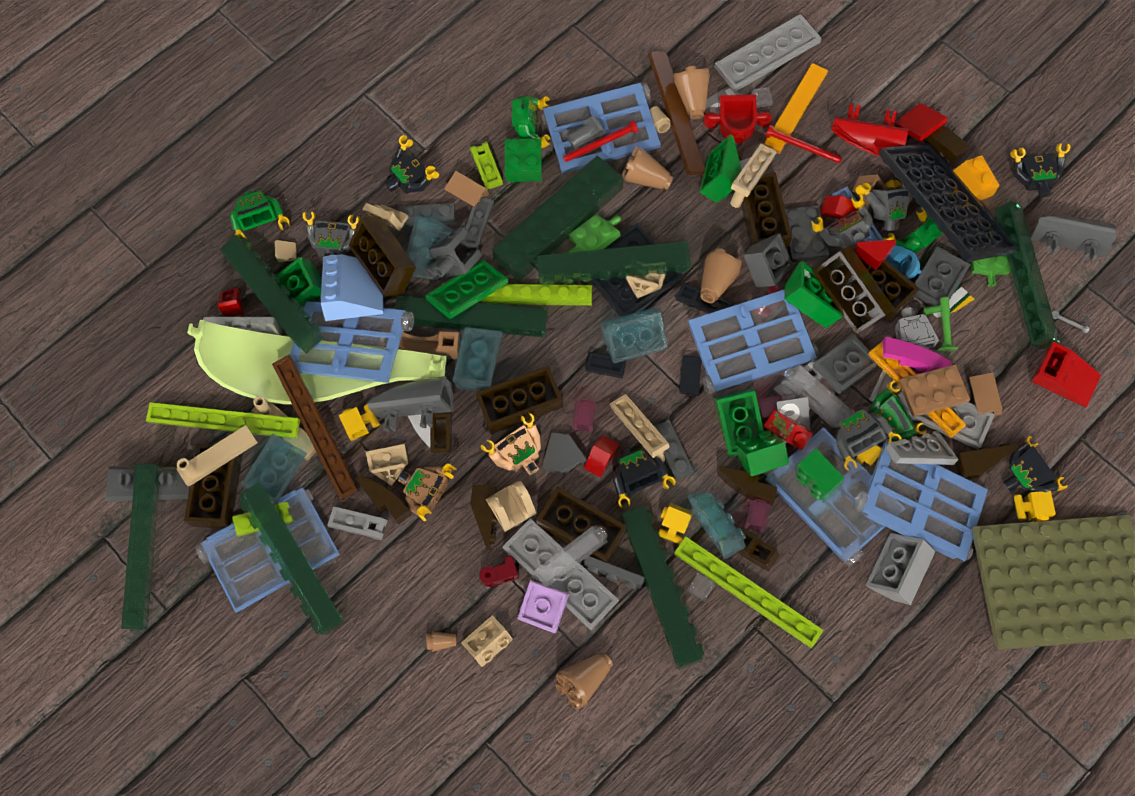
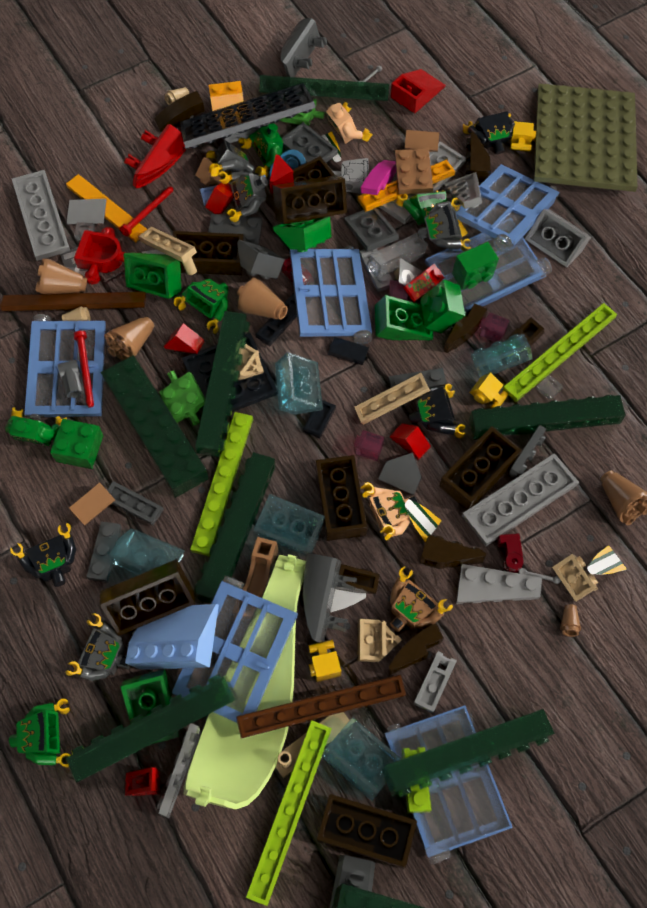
camera: 80 degrees left, 5 degrees down
(215, 456) = (338, 816): tan piece -> none
(285, 251) = (99, 710): tan slope -> none
(390, 216) = (90, 594): tan bracket -> none
(447, 261) = (165, 531): dark grey piece -> none
(463, 560) = (487, 584): none -> light grey wing
(466, 289) = (208, 523): green tile -> none
(484, 589) = (556, 579): none -> light grey hinge
(486, 166) = (68, 481): lime plate -> none
(508, 669) = (605, 563): none -> sticker
(512, 505) = (450, 520): tan piece -> none
(517, 472) = (422, 519): none -> sticker
(543, 606) = (551, 519): lavender tile -> none
(571, 555) = (514, 476): clear brick -> none
(656, 220) = (184, 340): none -> red slope
(710, 227) = (207, 298): none -> green torso
(785, 91) = (86, 211): none -> light grey sticker
(921, 121) = (157, 118): red tile -> none
(944, 308) = (338, 147): bright green piece -> none
(962, 130) = (173, 95): none -> tan cone
(981, 304) = (343, 123): none -> light nougat torso
(1039, 171) = (232, 55): black torso -> none

